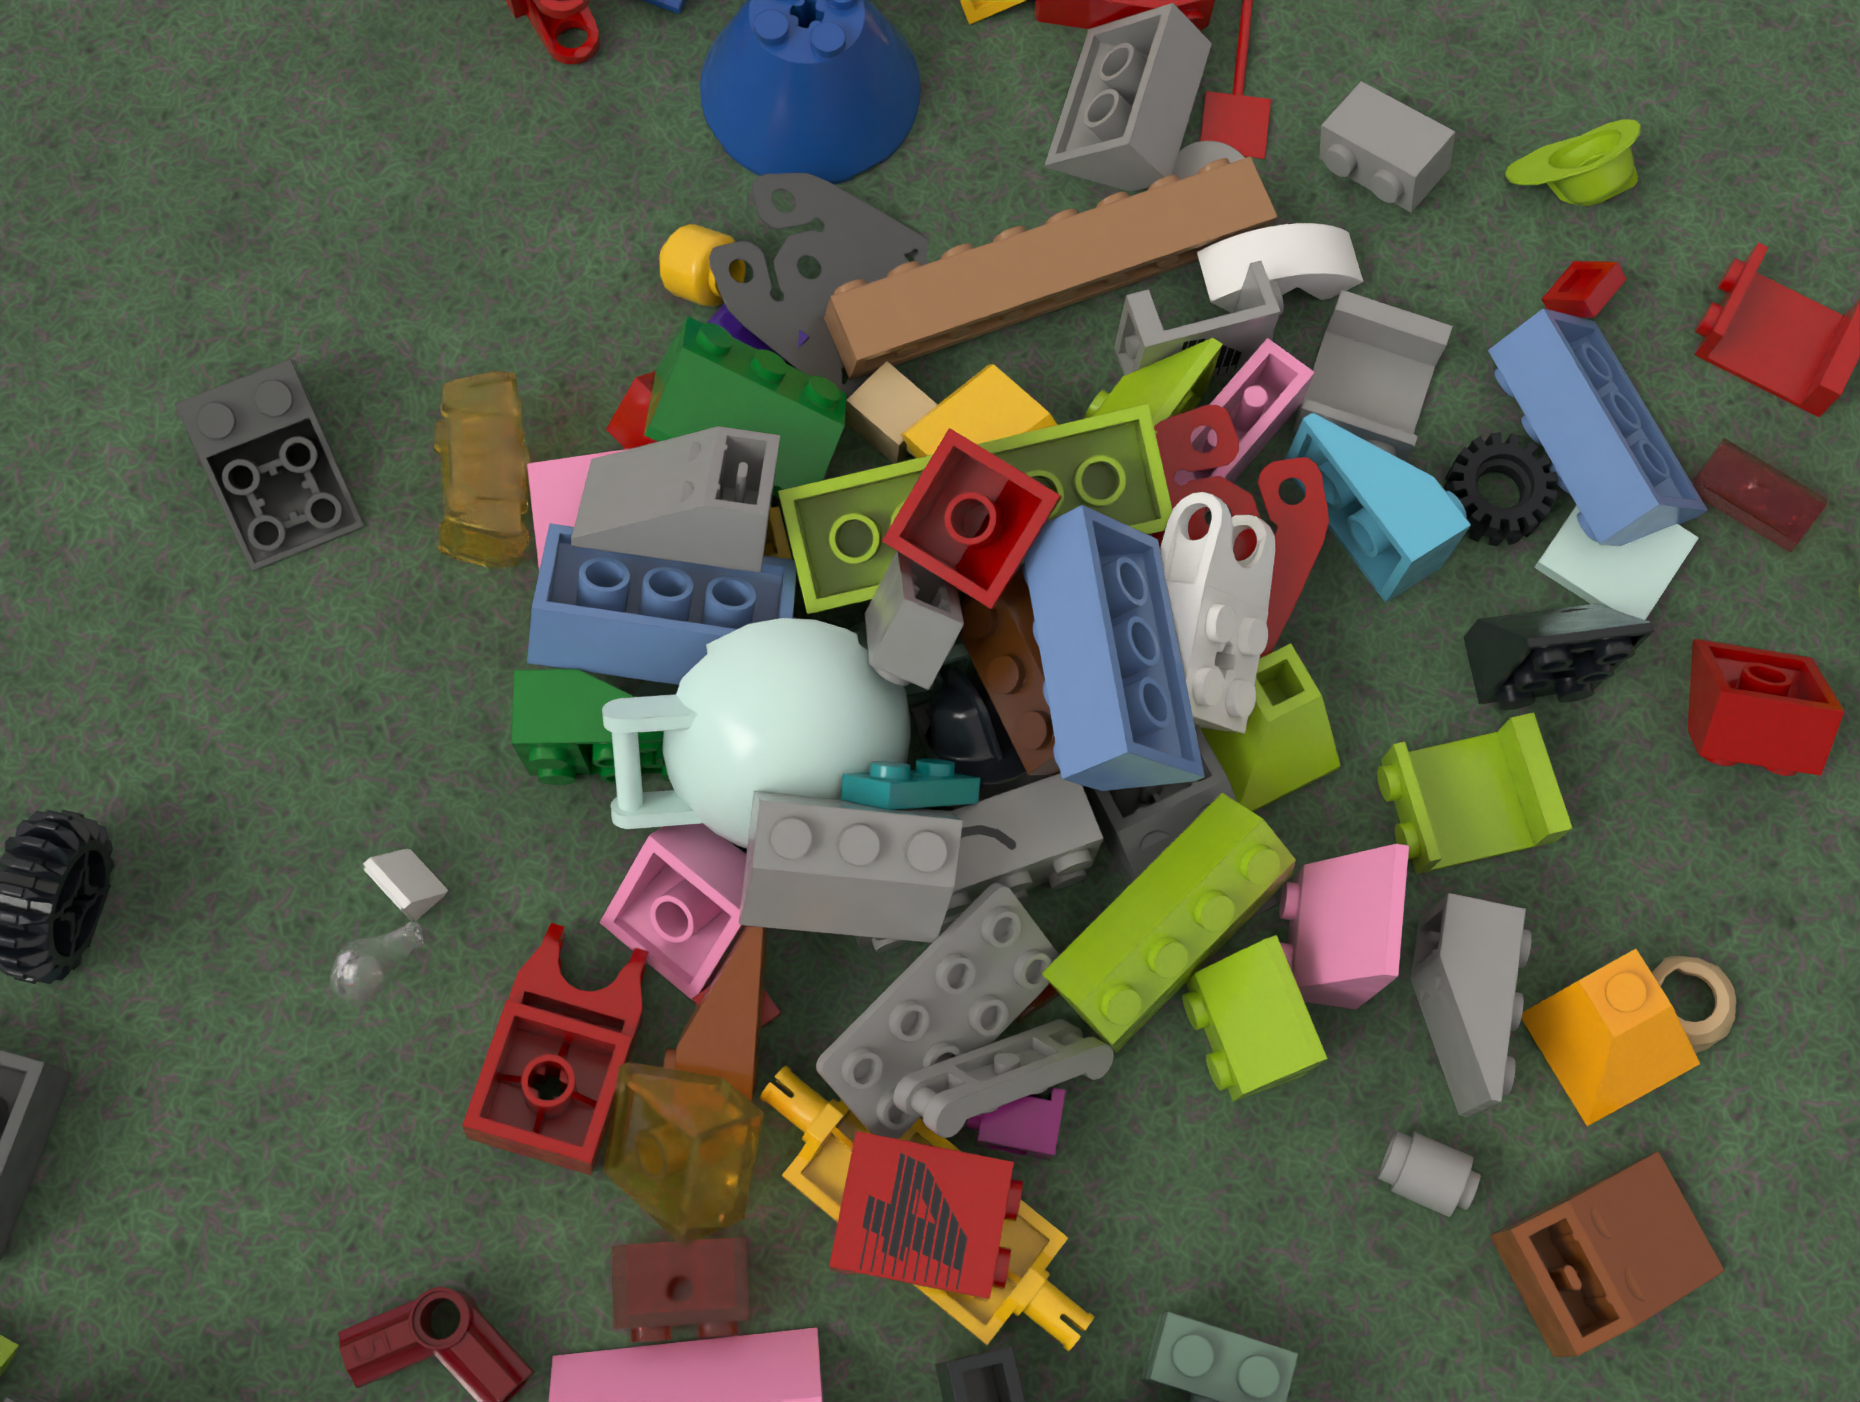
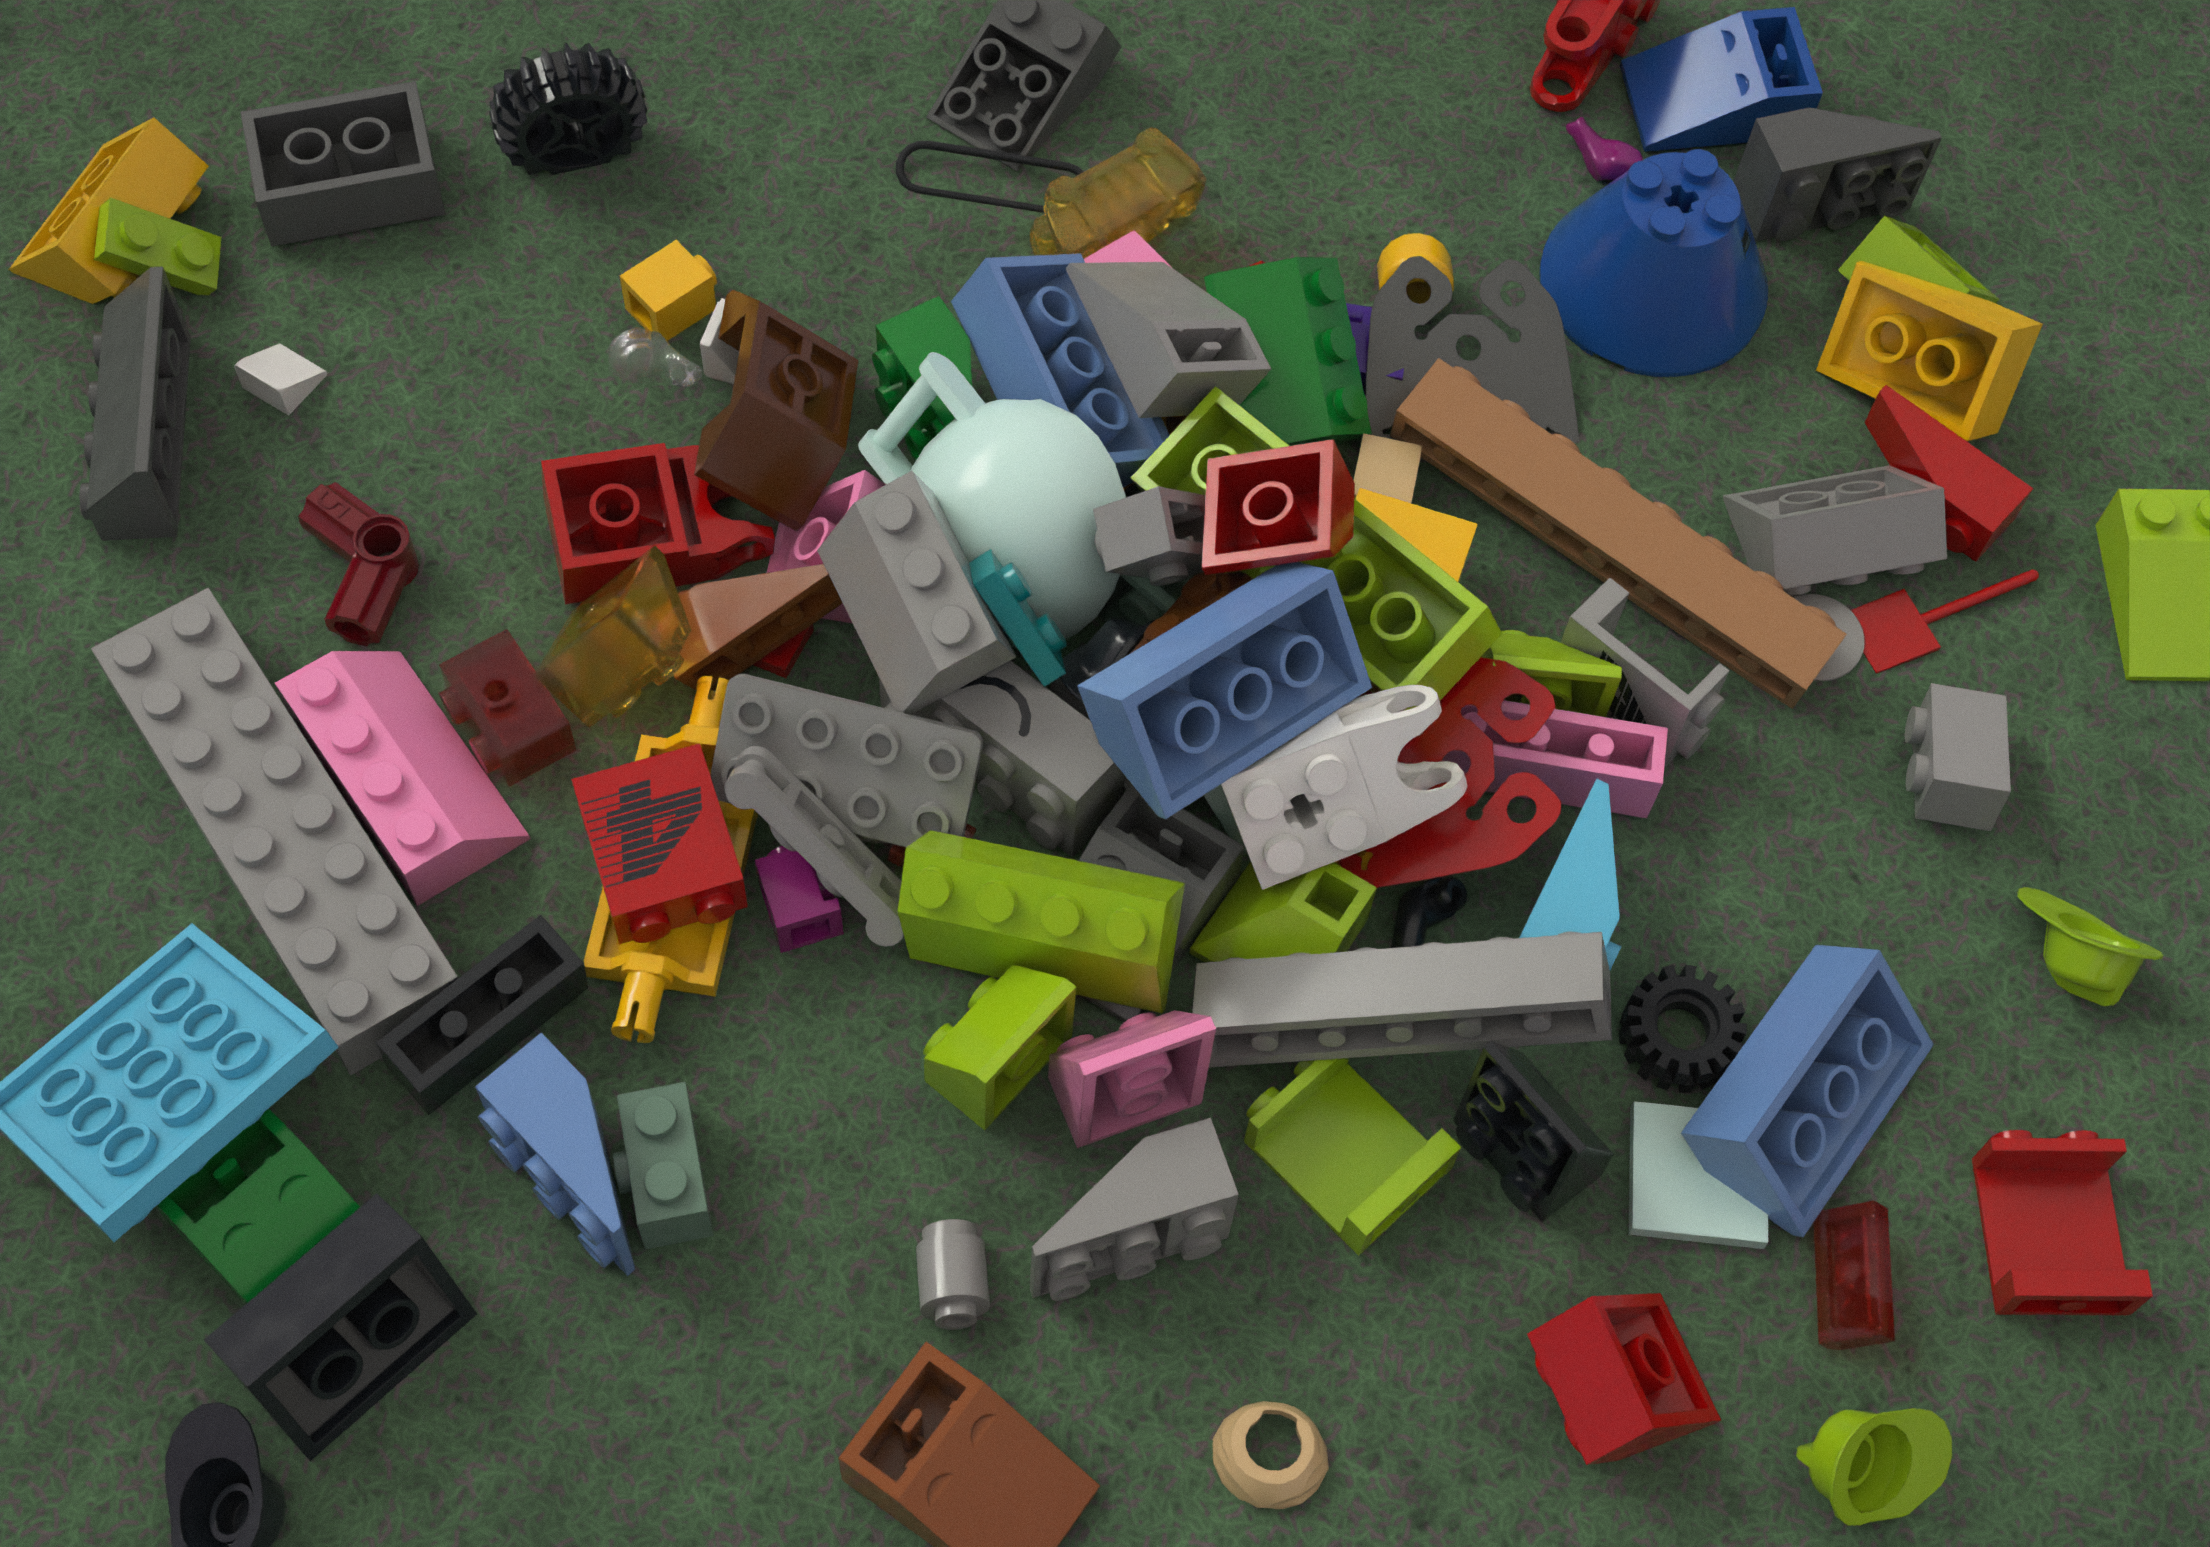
camera: 60 degrees right, 10 degrees down
(166, 1327) = (279, 377): none -> white slope
(310, 905) = (669, 290): none -> yellow brick
(341, 534) = (976, 152): none -> black piece
(533, 862) = (784, 413): none -> reddish brown slope
(669, 46) = (1603, 157): none -> magenta animal
(1294, 255) = (1785, 732): white brick -> none
(1301, 633) = (1426, 907): none -> black arm
(1374, 371) = (1711, 865): light grey panel -> none
(1412, 680) = (1407, 999): none -> light grey brick
(1584, 288) = (1953, 1009): red tile -> none
(1611, 1037) = (1189, 1380): light orange slope -> none

